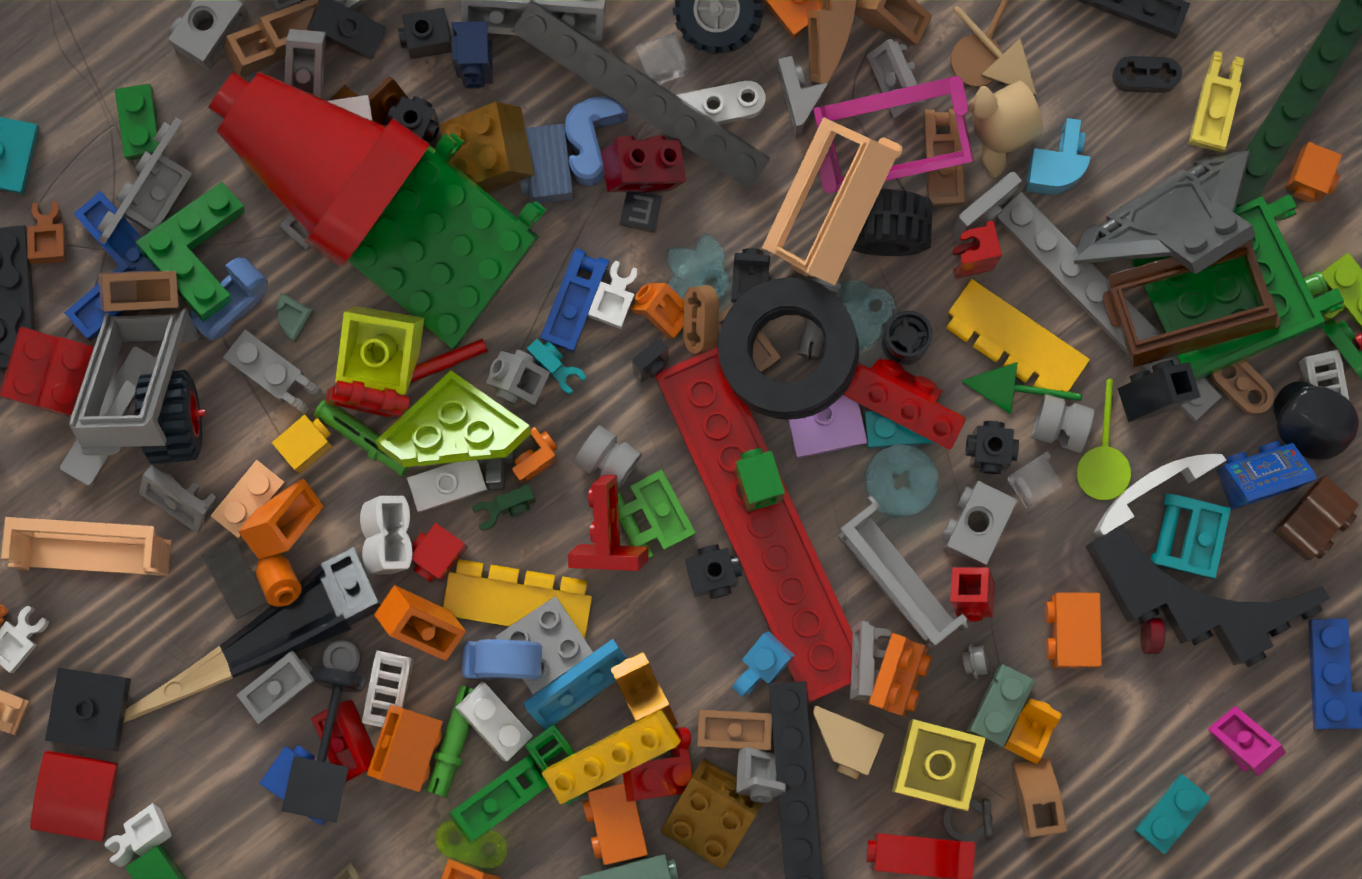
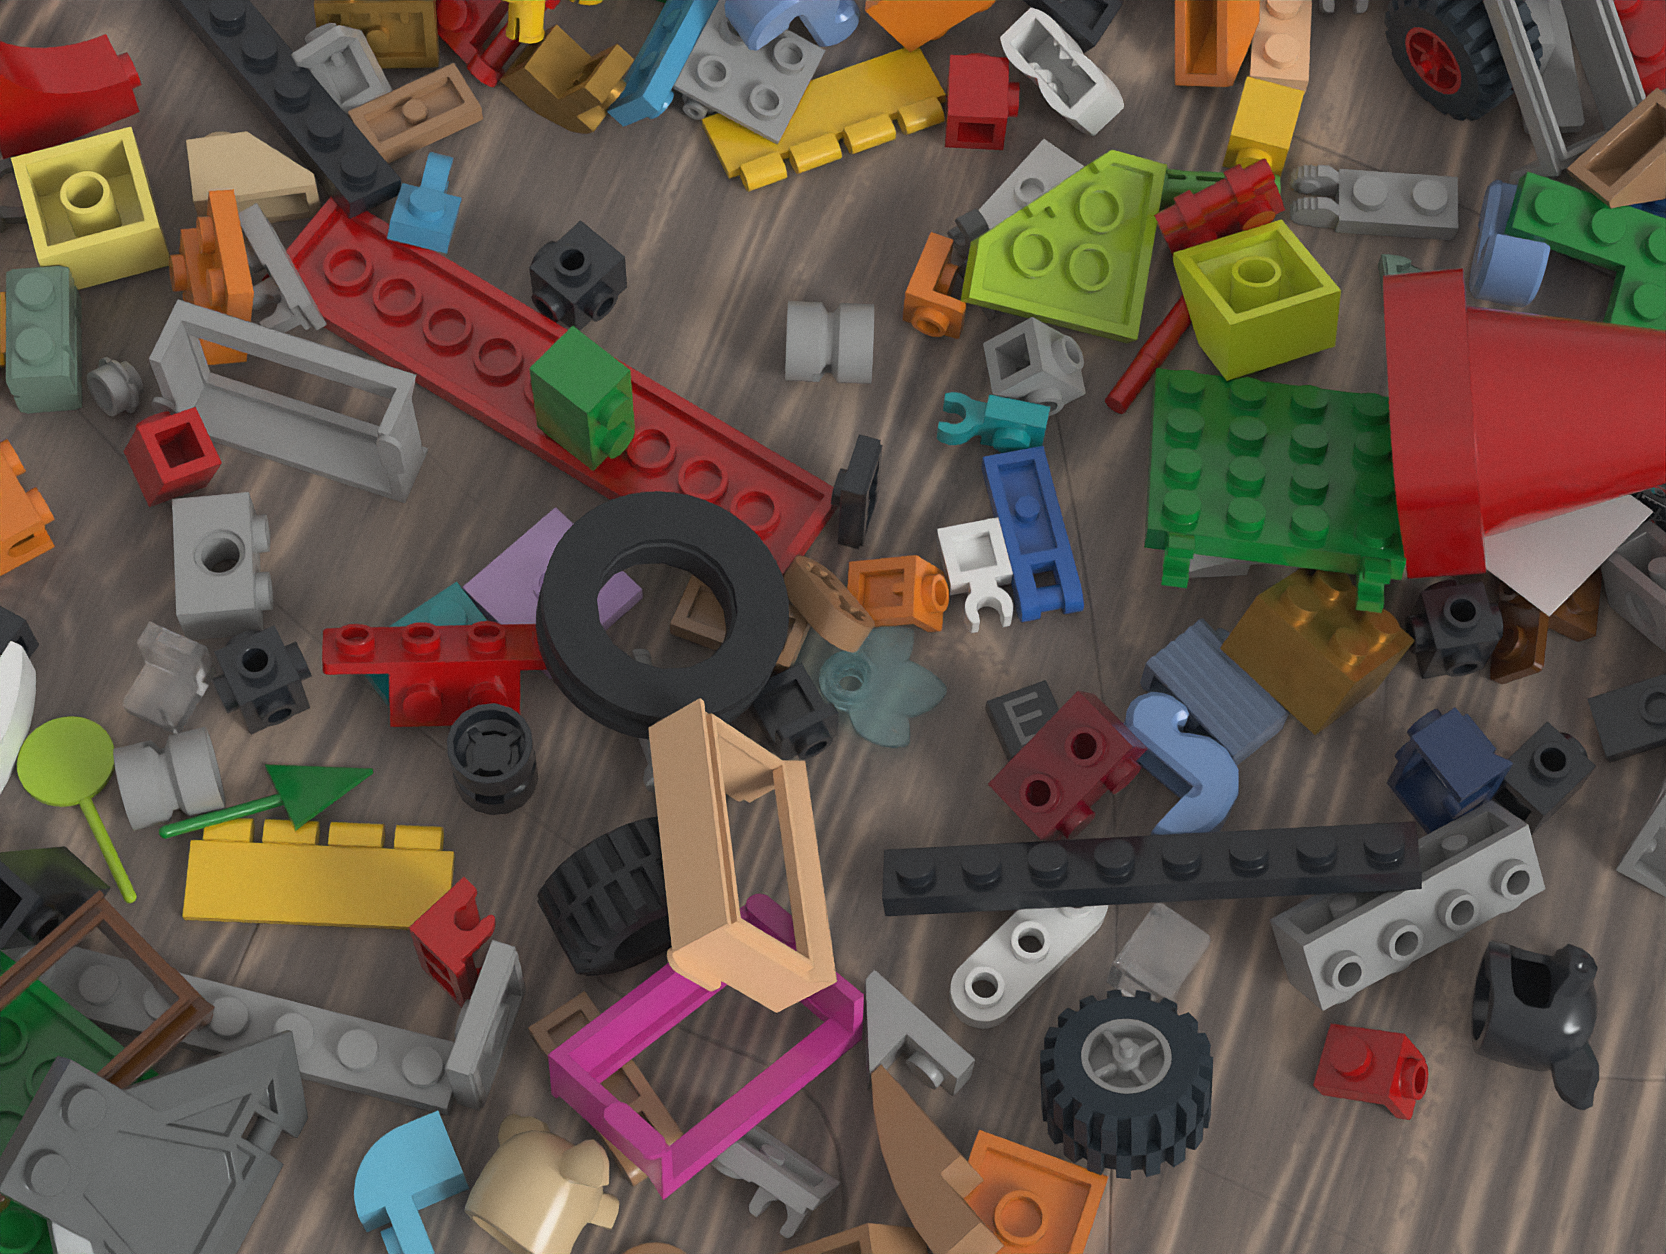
camera: 145 degrees right, 15 degrees down
(513, 502) = (928, 211): dark green plate -> none
(605, 533) = (758, 223): red bracket -> none
(662, 511) = (706, 327): bright green plate -> none
(858, 299) = (596, 763): clear light blue plate -> none
(897, 460) = (372, 534): clear light blue plate -> none

